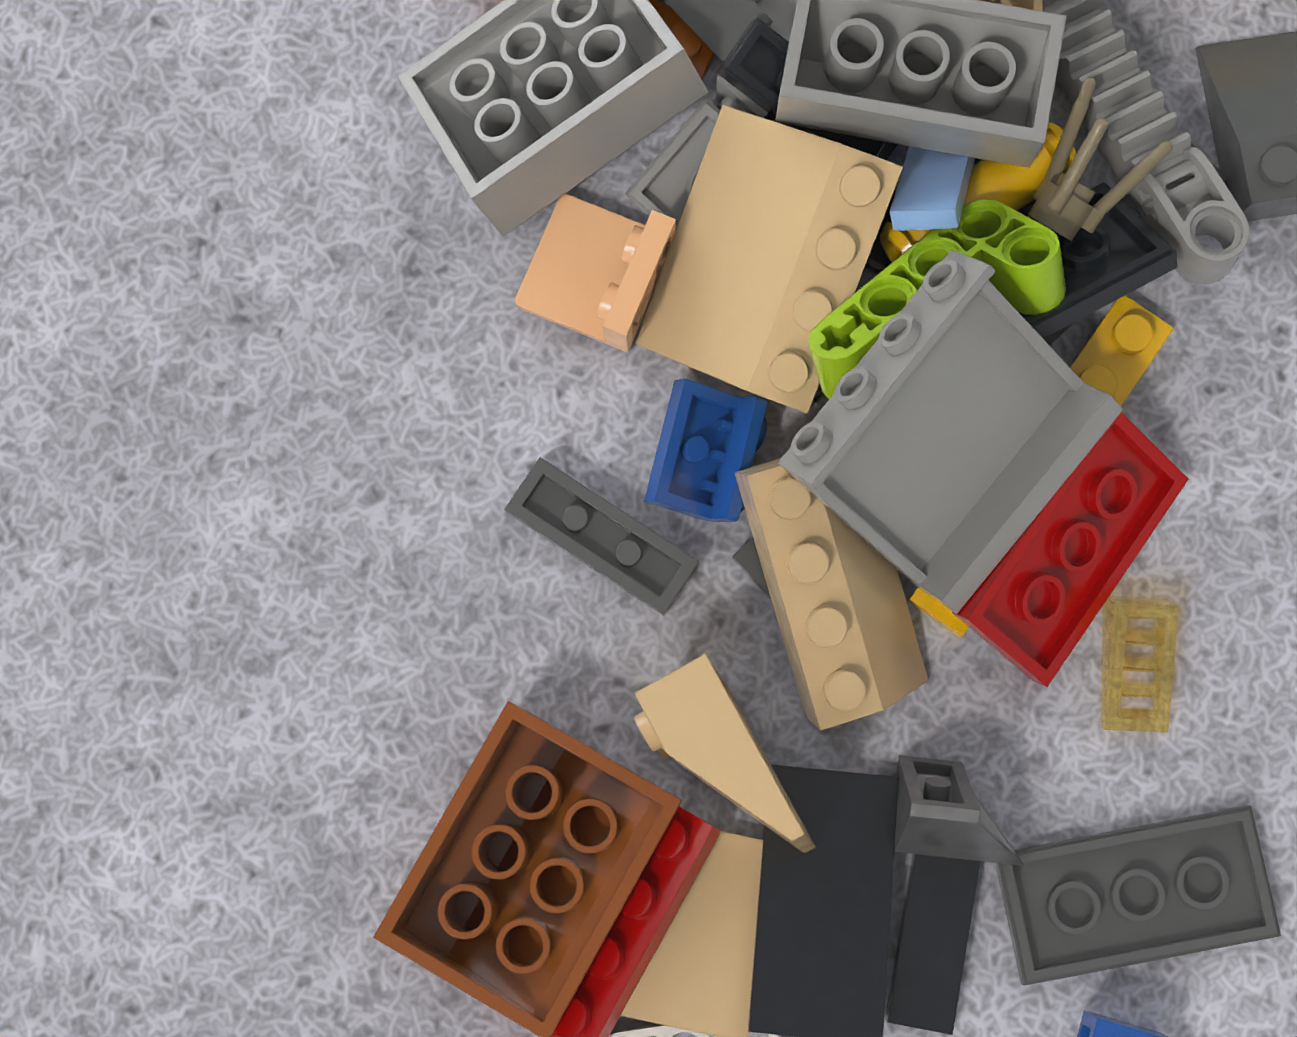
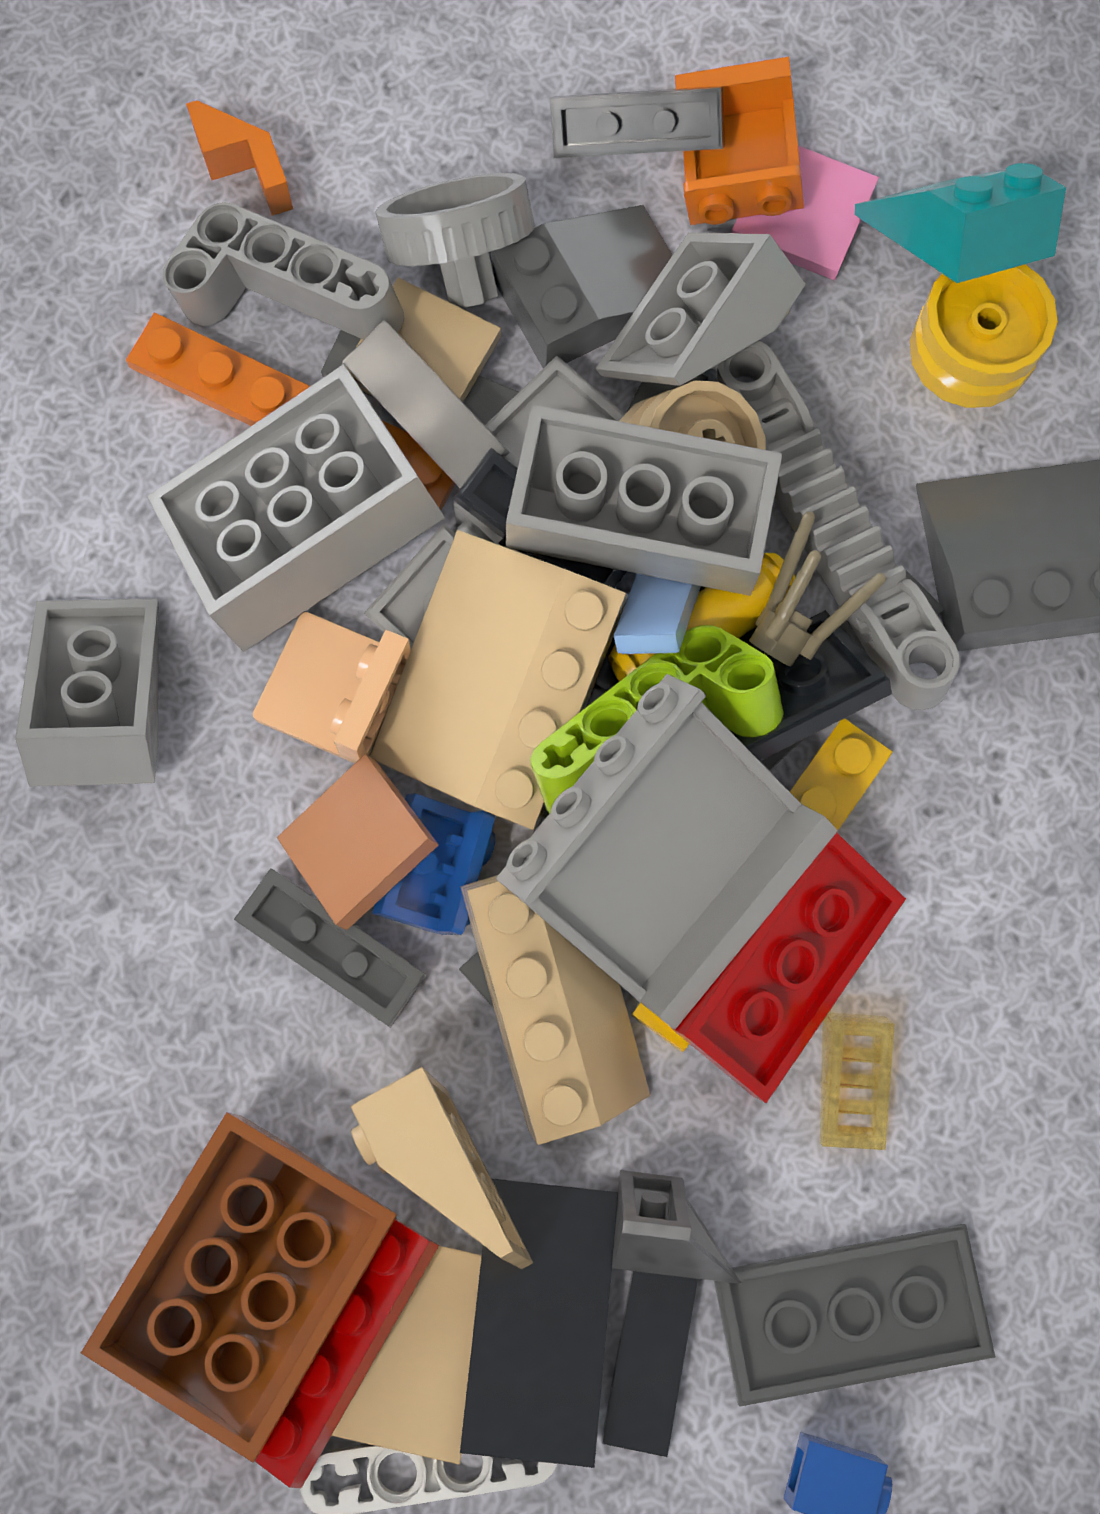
camera: 10 degrees left, 5 degrees down
(350, 281) = (91, 693): none -> light grey slope
(627, 429) = (356, 842): none -> nougat tile

